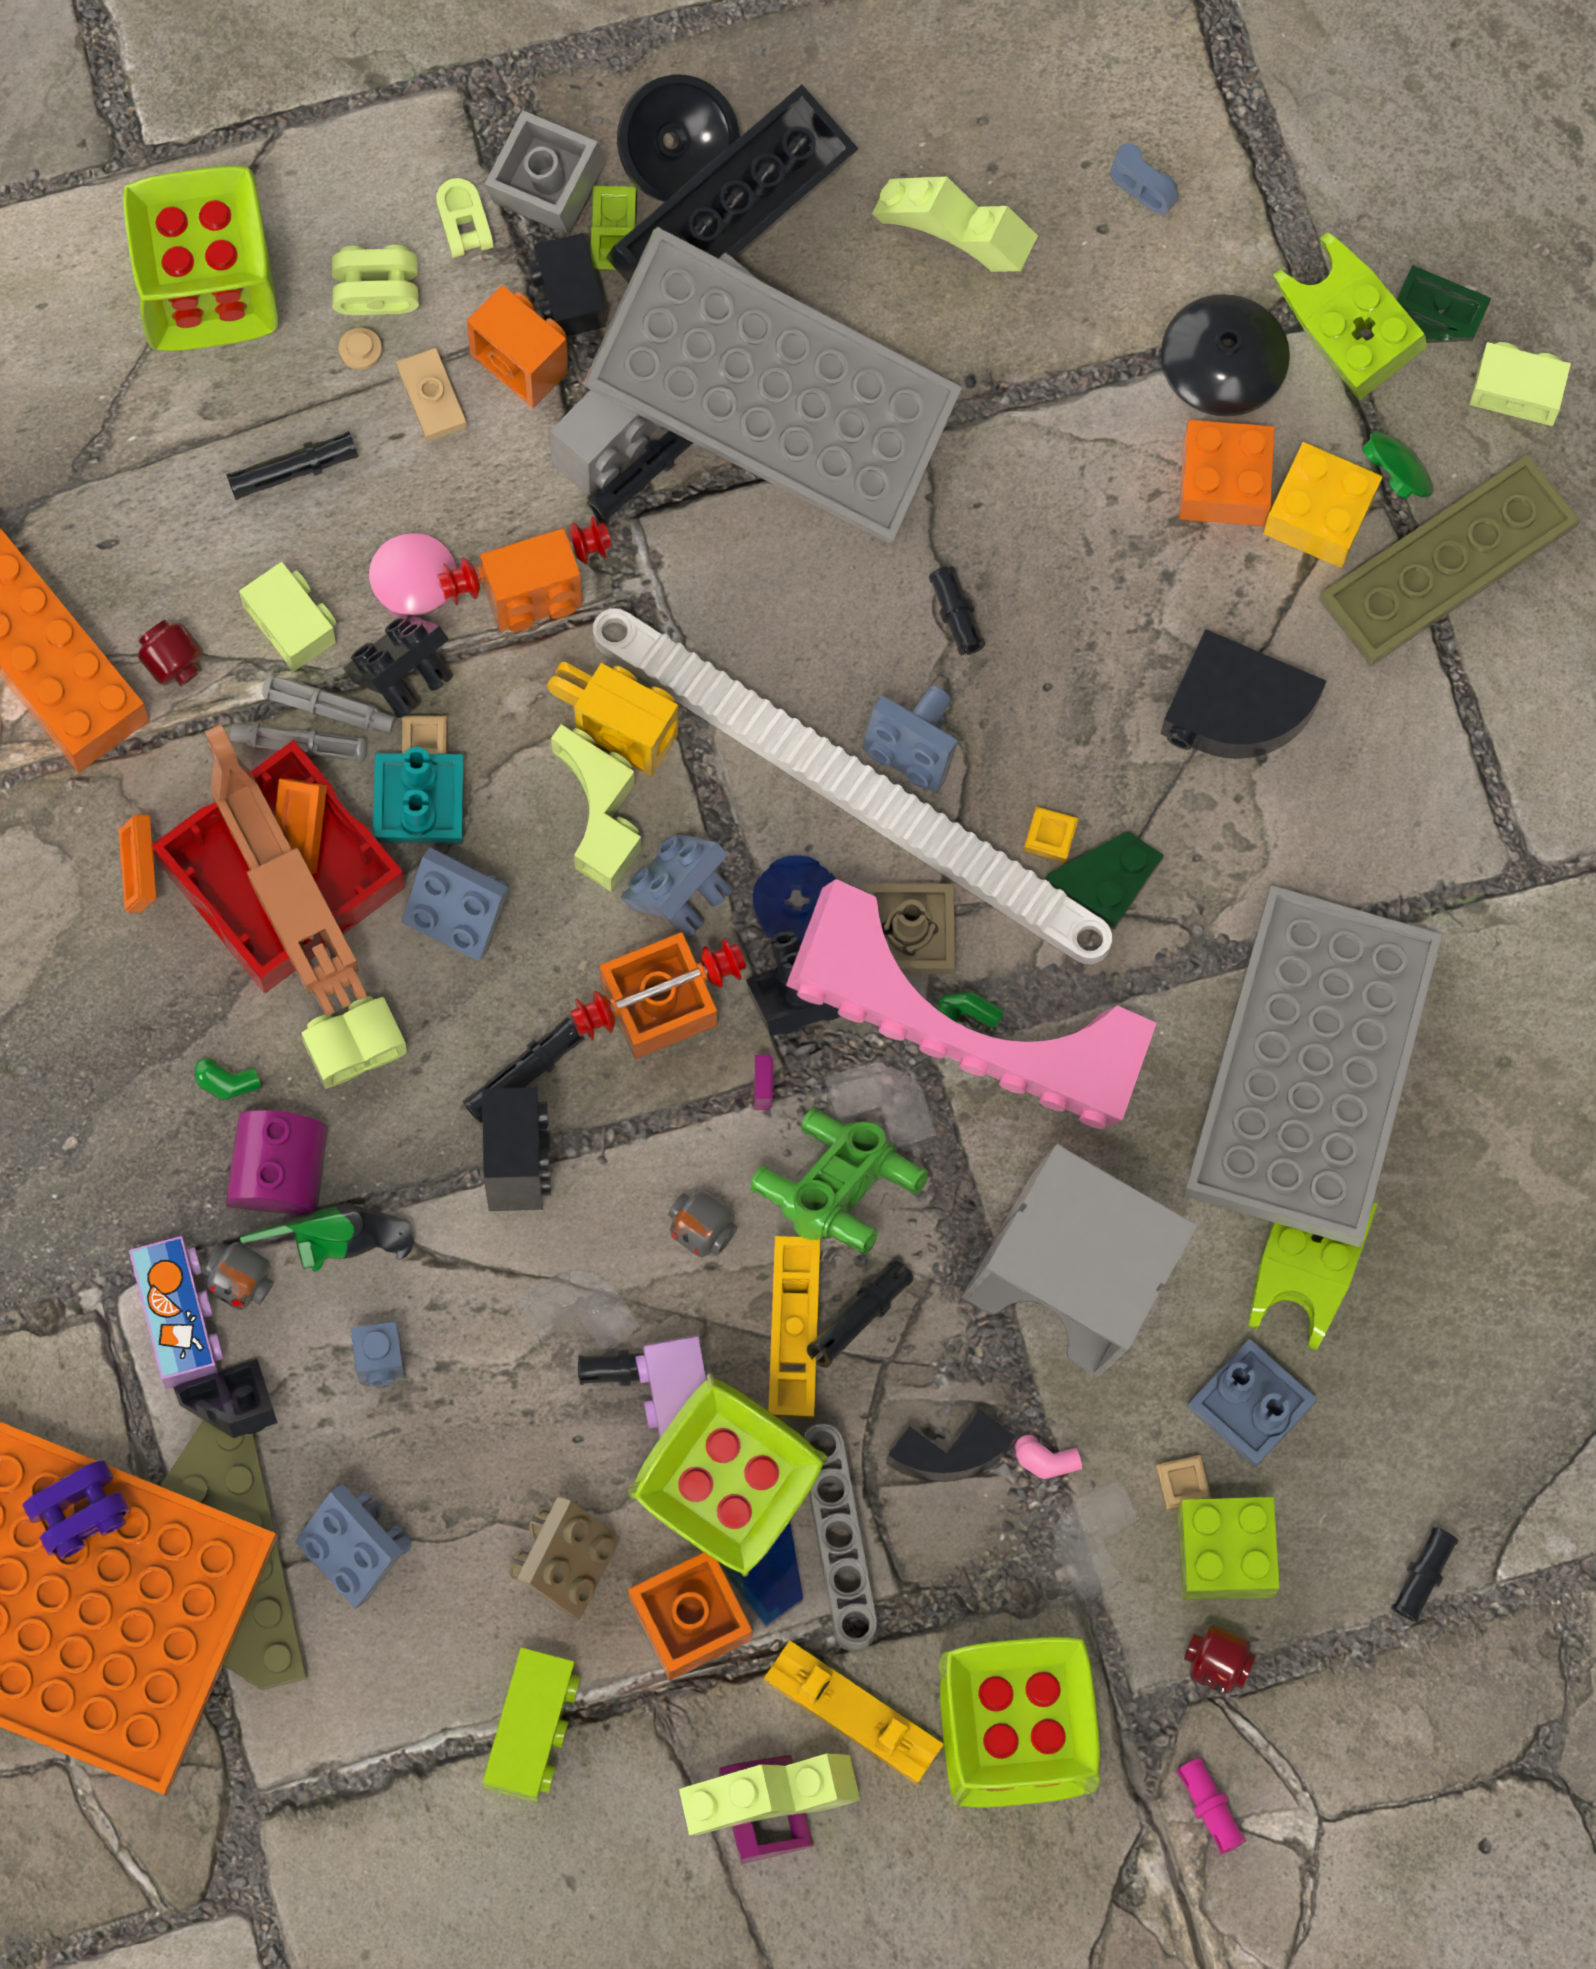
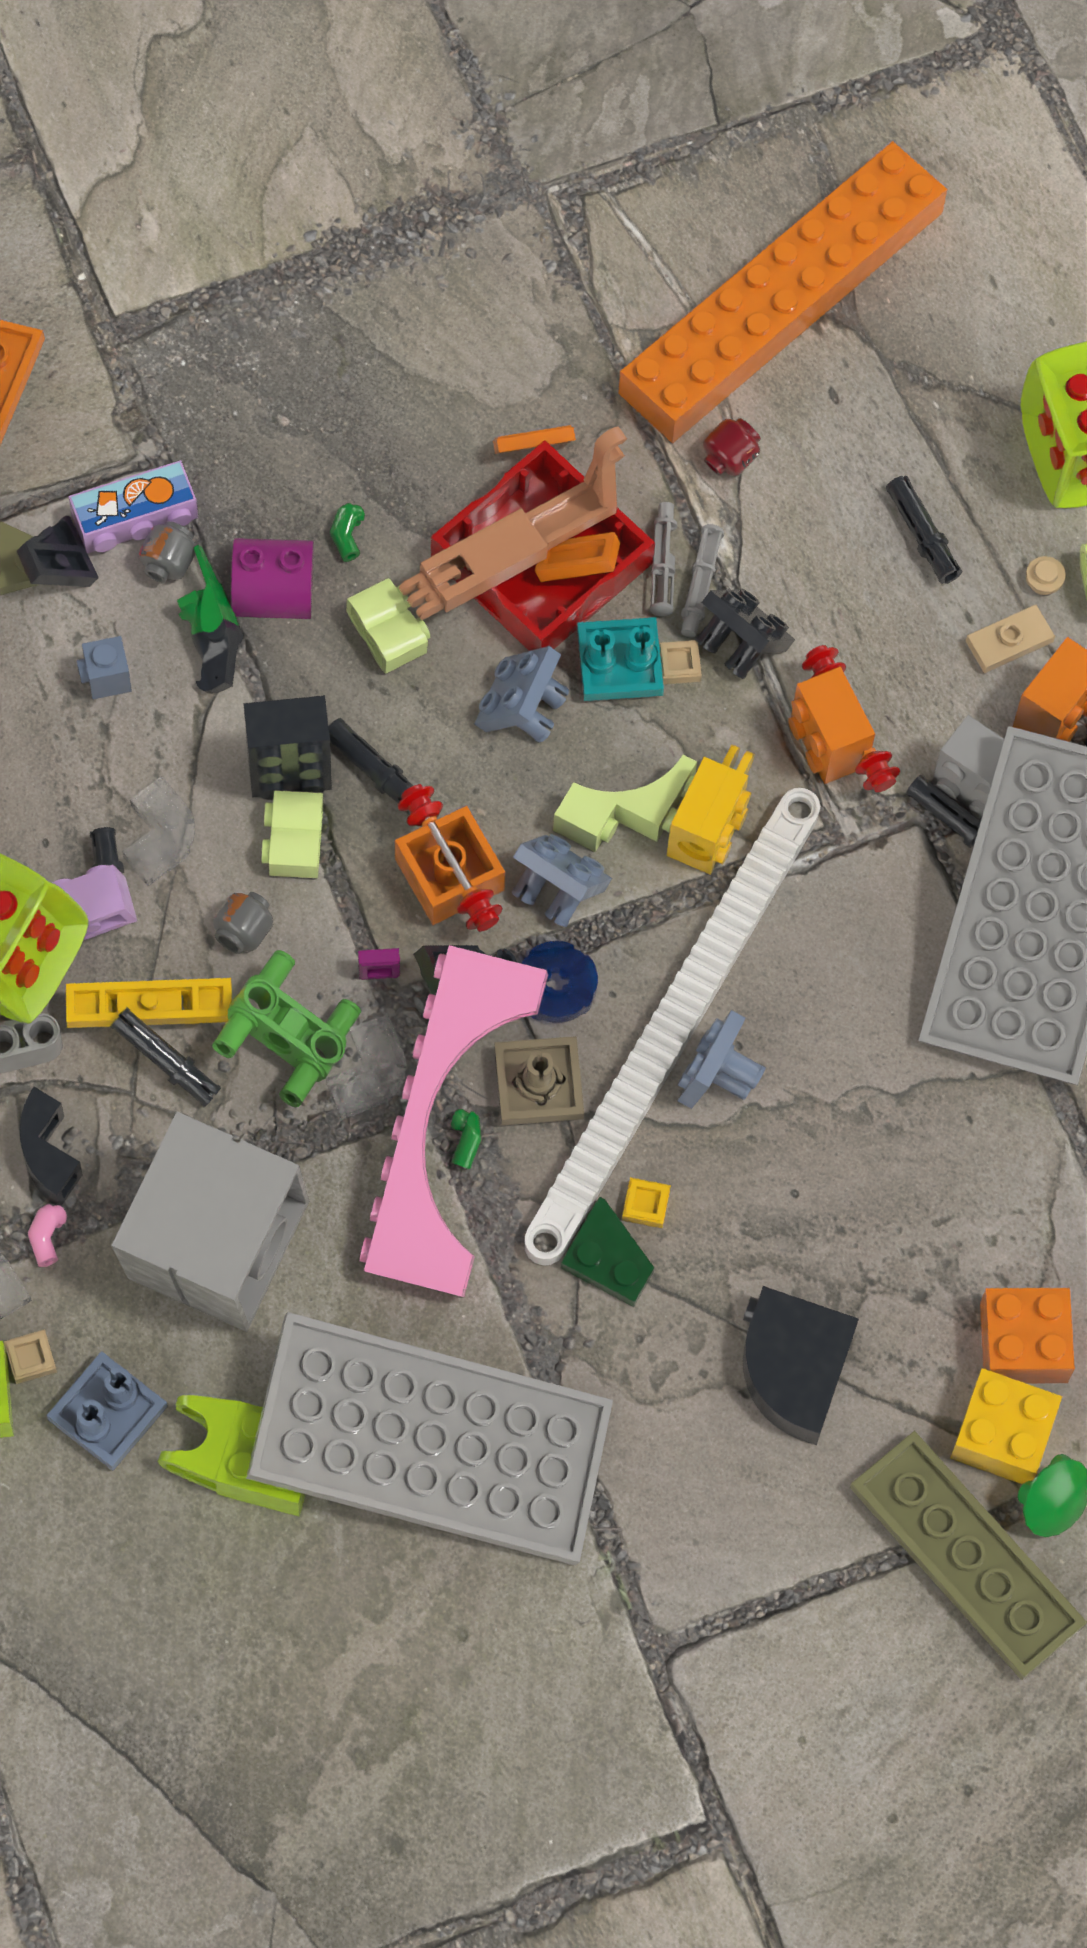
camera: 85 degrees right, 5 degrees down
(288, 616) = (778, 537): yellowish green brick -> none
(406, 574) = (838, 627): bright pink dish -> none
(600, 1161) = (294, 834): none -> yellowish green brick
(957, 610) = (856, 1102): black pin -> none

